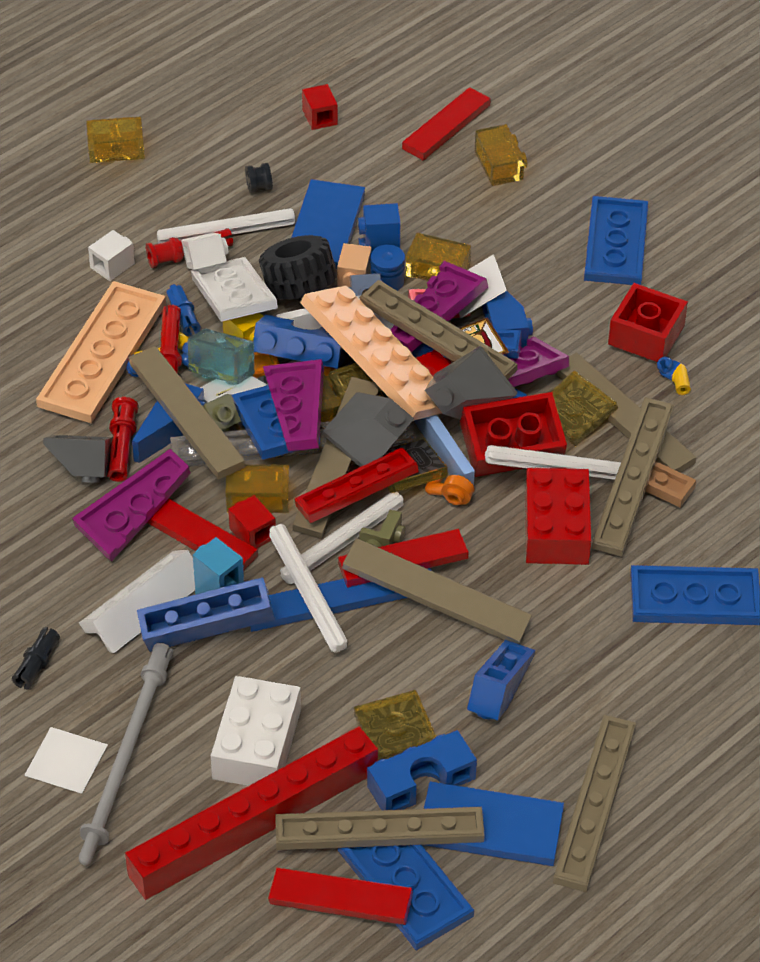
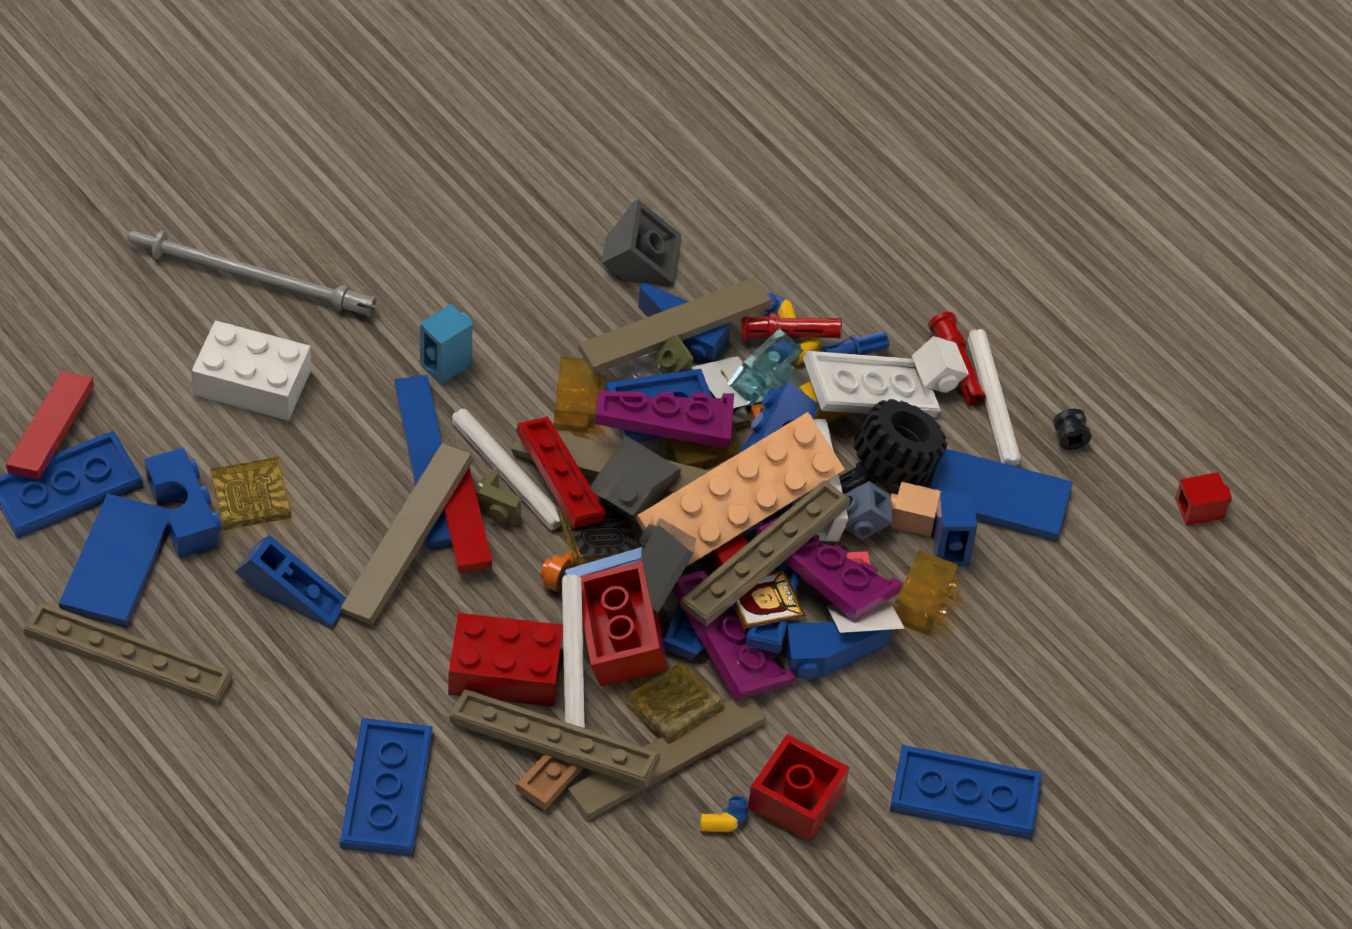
camera: 90 degrees right, 5 degrees up
(35, 658) = (379, 210): black pin -> none
(66, 760) = (258, 234): white sticker -> none
(101, 352) = (796, 273): light nougat plate -> none
(111, 255) = (942, 286): white brick -> none
(115, 139) = (1138, 297): clear yellow brick -> none
(122, 428) = (680, 285): red pin -> none
(125, 509) = (561, 283): magenta wing -> none
(164, 582) = (434, 288): white panel -> none
(196, 531) = (526, 347): red tile -> none
(206, 614) = (396, 330): blue brick -> none
(250, 813) = (158, 363): red brick -> none
(251, 521) = (529, 386): red brick -> none
(308, 588) = (428, 423): white axle -> none
(379, 828) = (119, 461): dark tan tile -> none
(390, 264) = (907, 535): blue piece -> none
(446, 123) = (1183, 634): red tile -> none
(500, 155) = (1114, 677): clear yellow brick -> none

